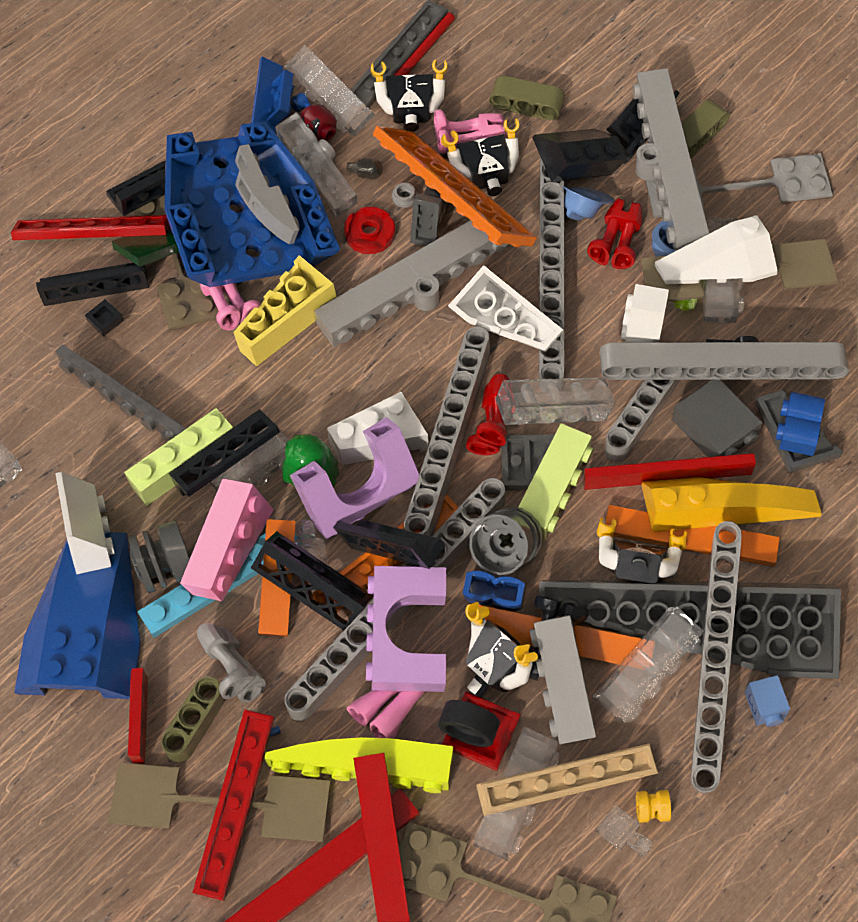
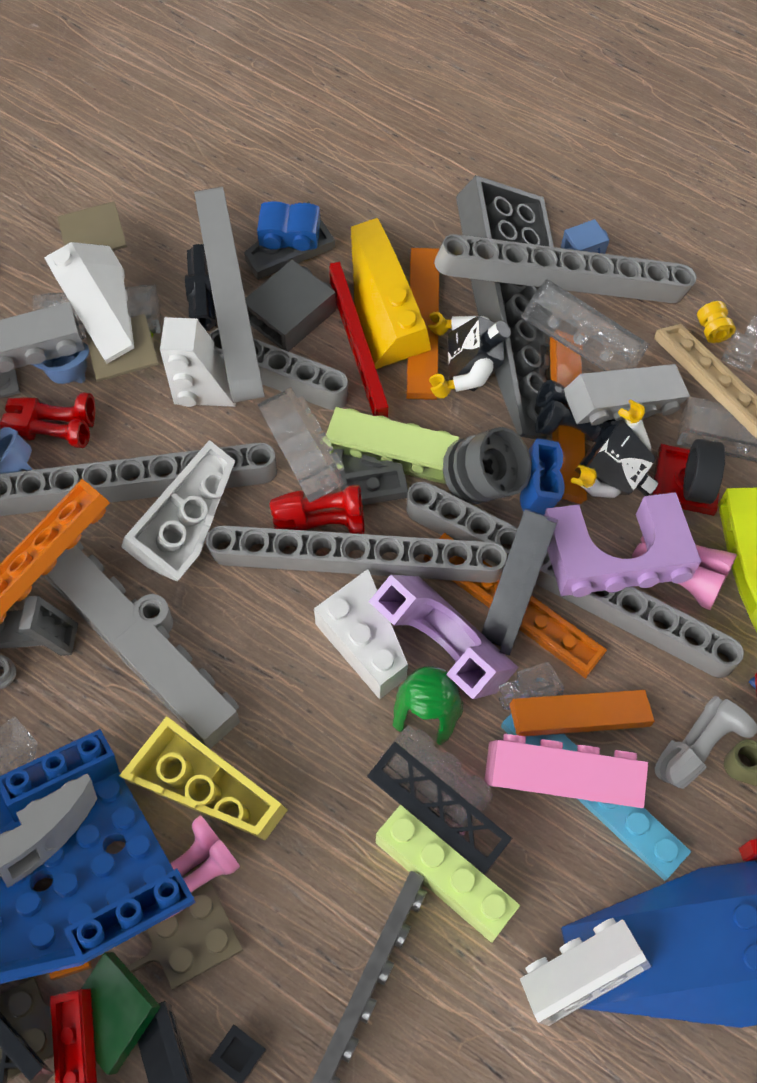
camera: 105 degrees left, 0 degrees up
(159, 556) = (600, 854): dark grey wheel -> none
(316, 573) = (578, 660): black fence -> none
(373, 242) = (66, 724): red tile -> none

